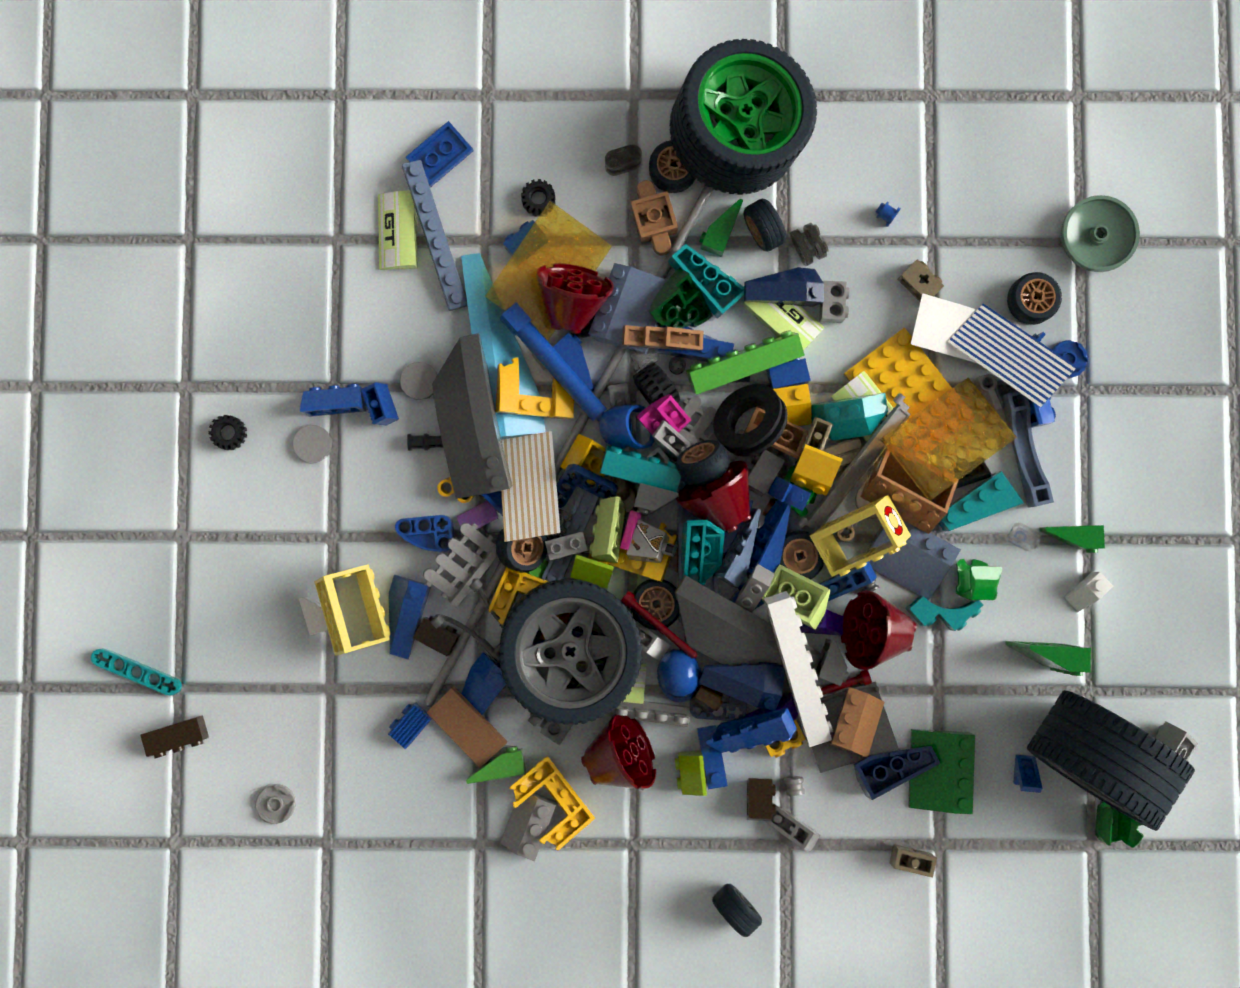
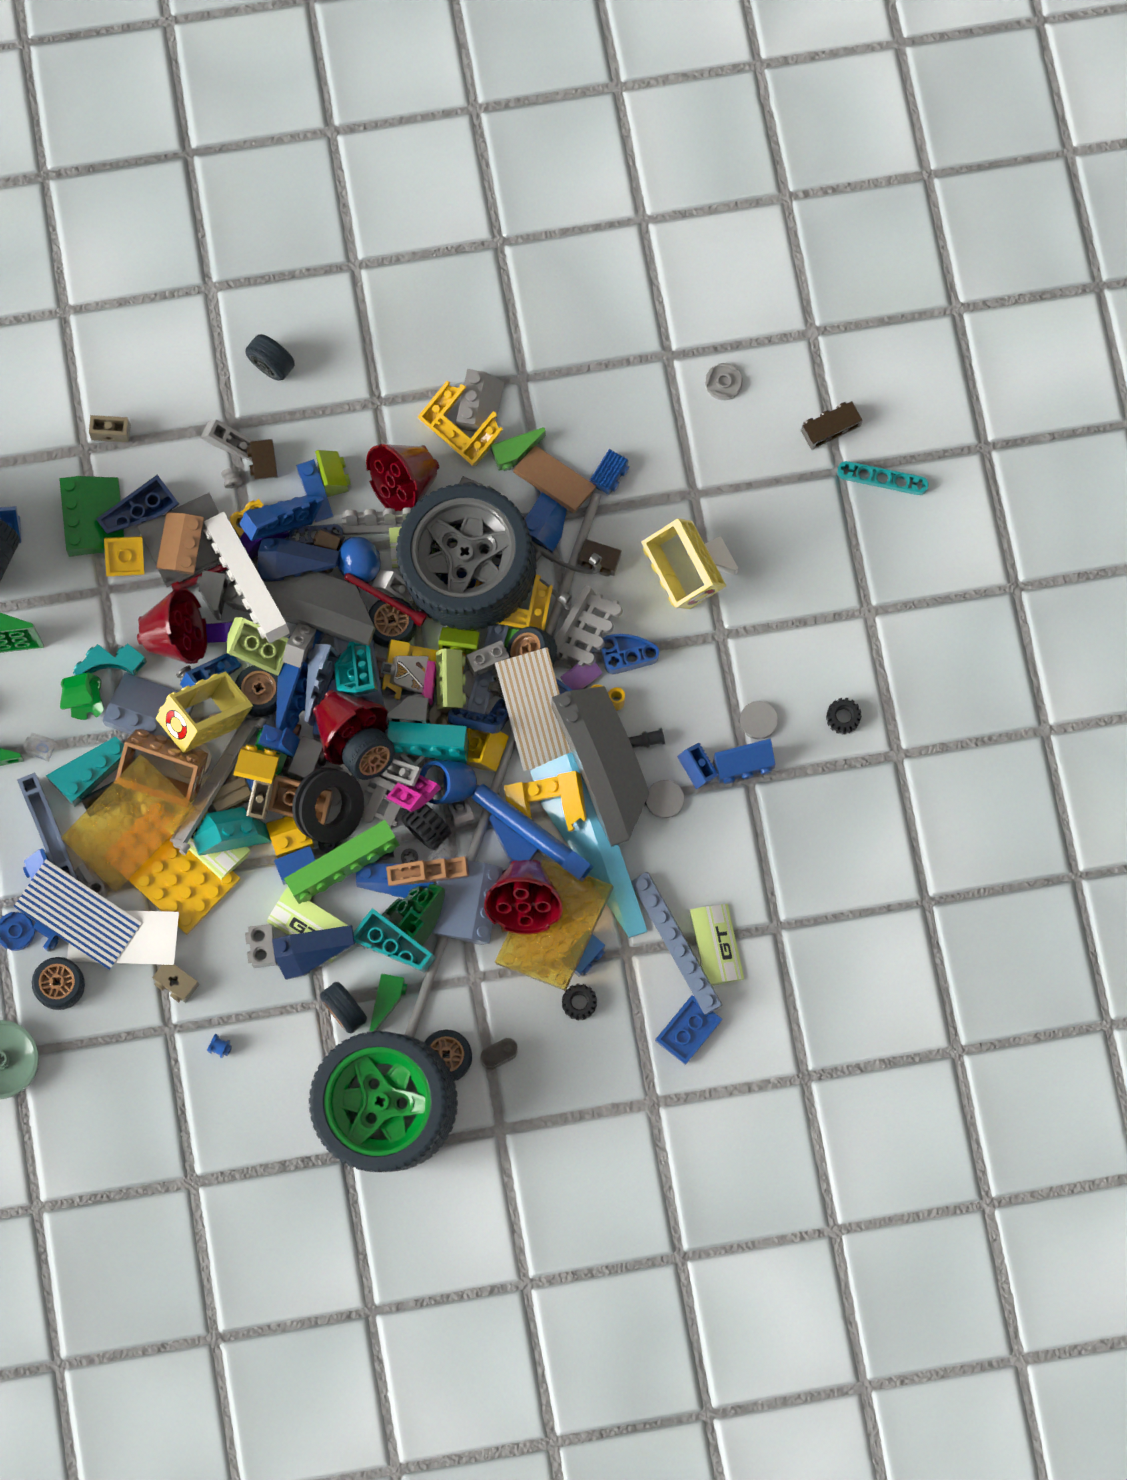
camera: 165 degrees right, 10 degrees down
(406, 609) = (635, 579): blue wedge -> none
(654, 217) = (457, 998): medium nougat brick -> none
(811, 233) = (294, 1012): clear smoke brick -> none
(915, 720) = (124, 556): none -> yellow plate

